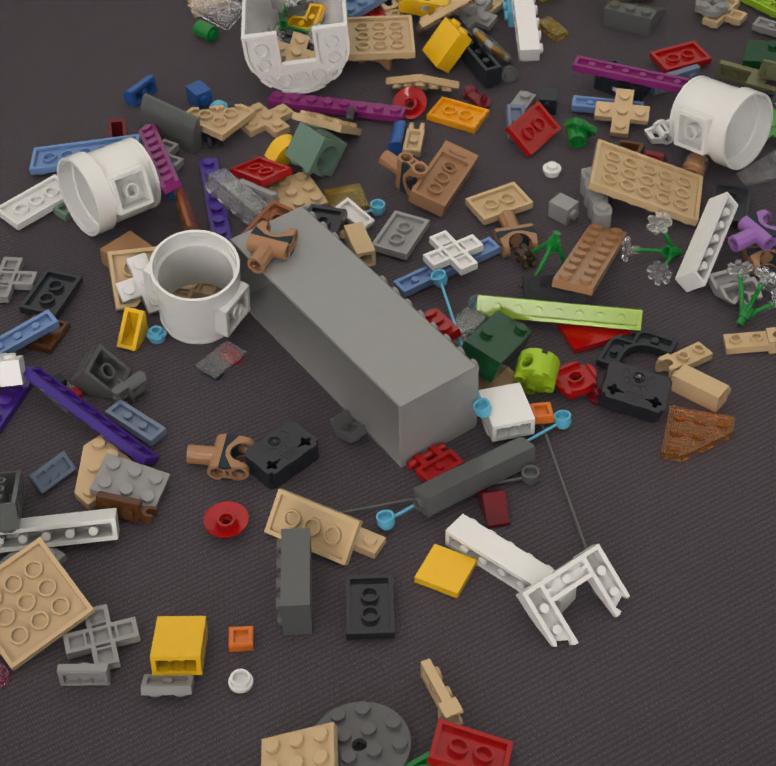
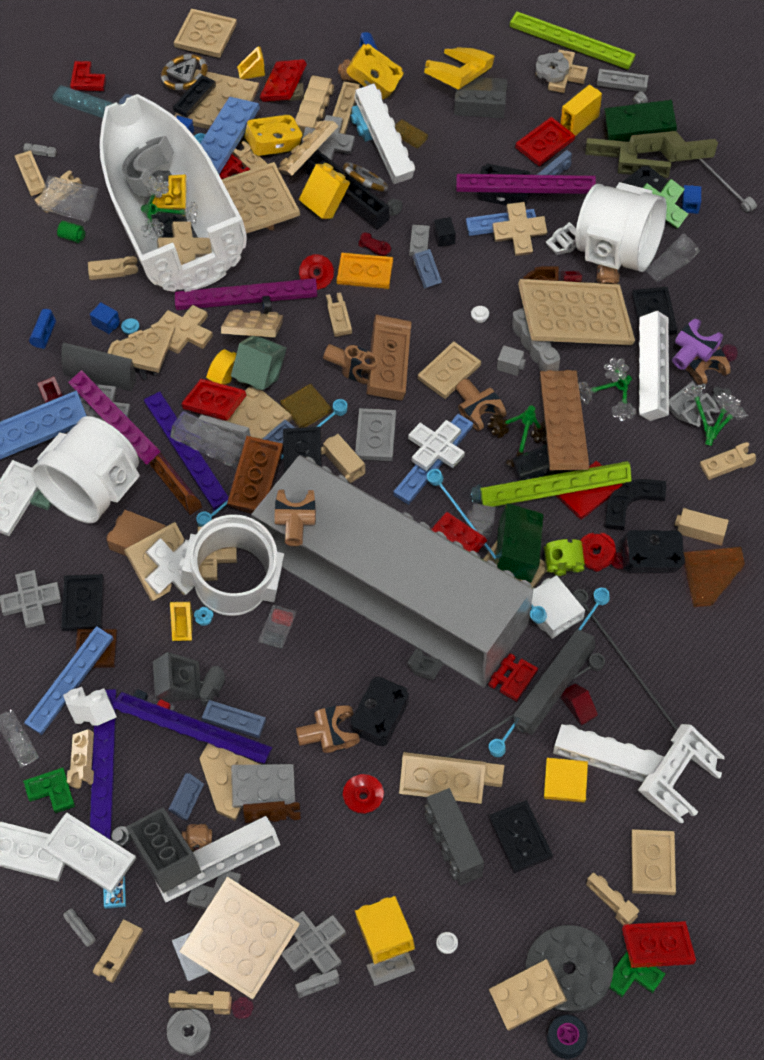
camera: 20 degrees left, 15 degrees up
(40, 506) = (197, 836): none -> medium nougat head
(226, 64) = (112, 268): none -> tan hinge
(241, 639) = (427, 902): orange tile -> none
(355, 213) = (329, 426): white tile -> none
(397, 137) = (322, 318): blue brick -> none
(423, 82) = (319, 245): tan plate -> none
(504, 674) = (653, 862): none -> tan plate
(533, 129) = (446, 273): red plate -> none
(542, 412) = (584, 596): orange tile -> none
(578, 131) = (488, 264): green piece -> none
(692, 356) = (677, 499): tan plate -> none
(725, 38) = (581, 110): none -> yellow brick

